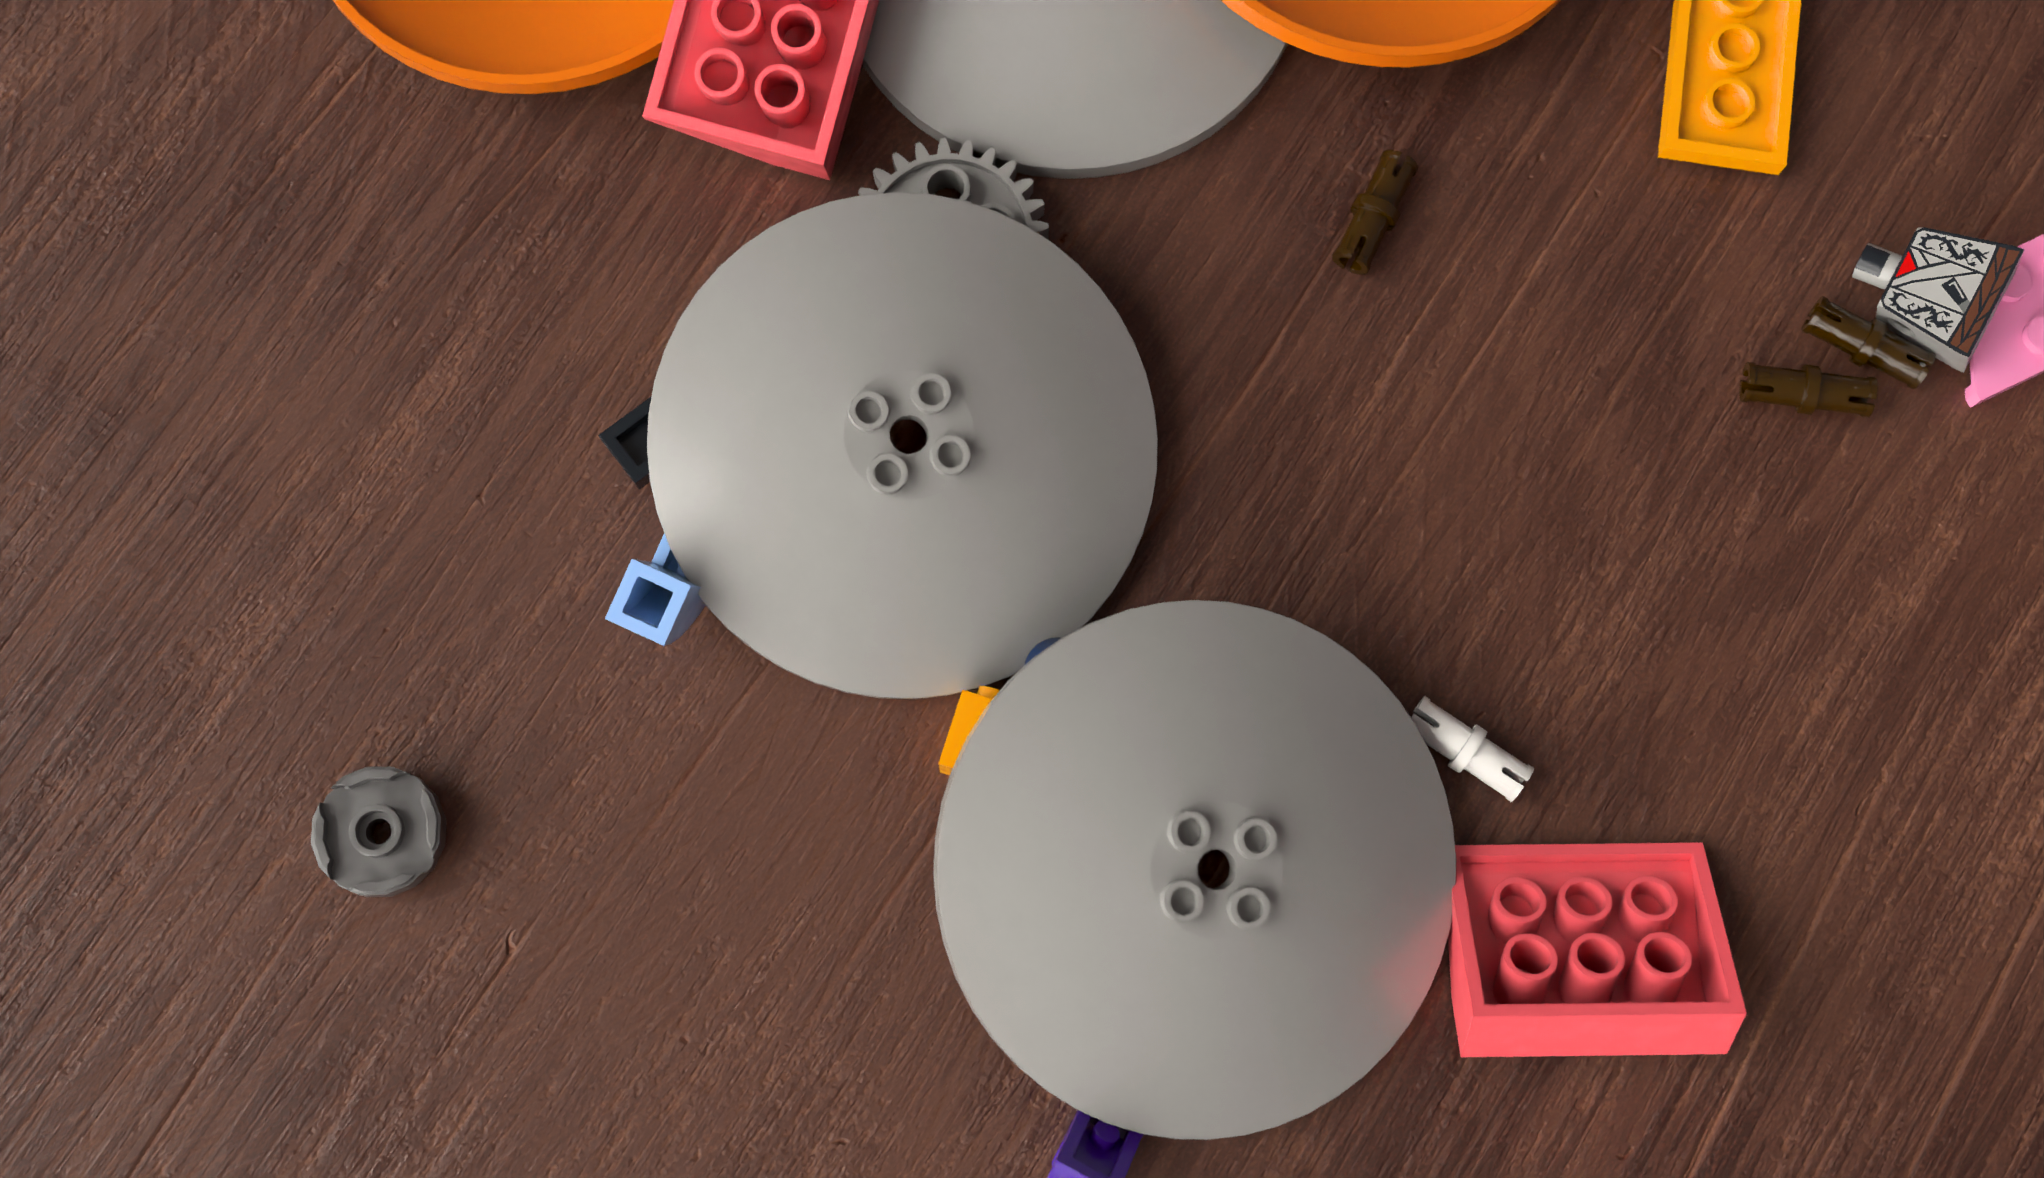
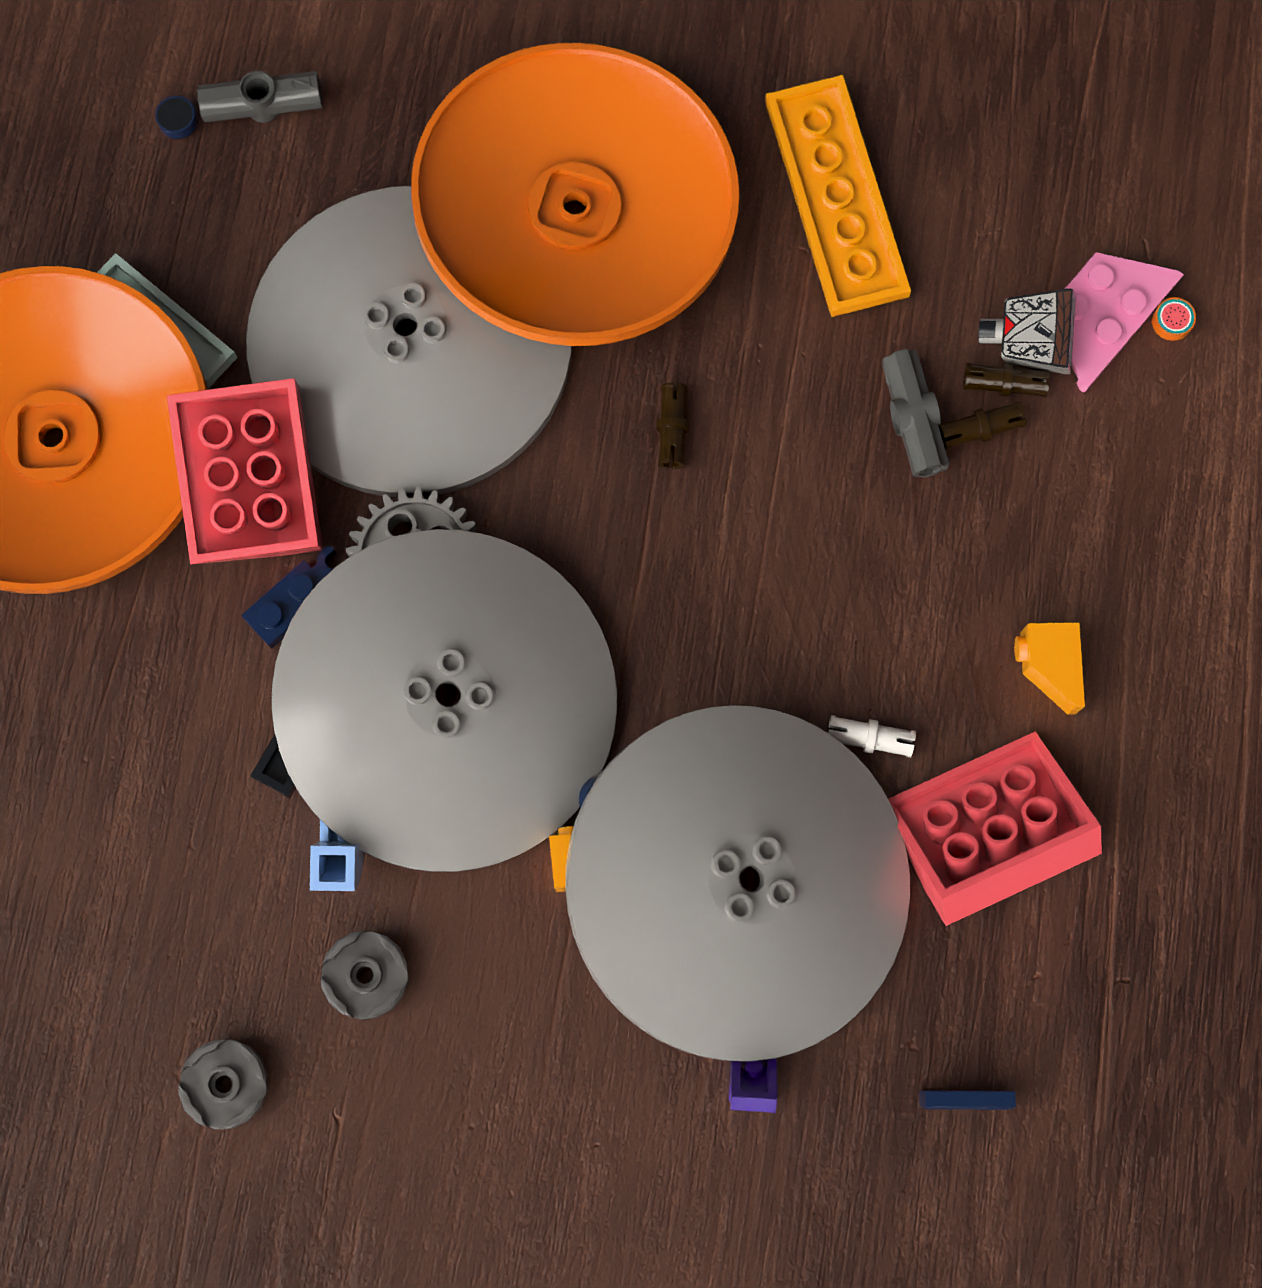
camera: 20 degrees left, 0 degrees up
(605, 748) = (341, 975): none -> flat silver plate
(725, 229) = (276, 608): none -> dark blue plate
(1720, 334) = (915, 413): none -> dark grey piece
(1771, 758) = (1053, 662): none -> light orange slope

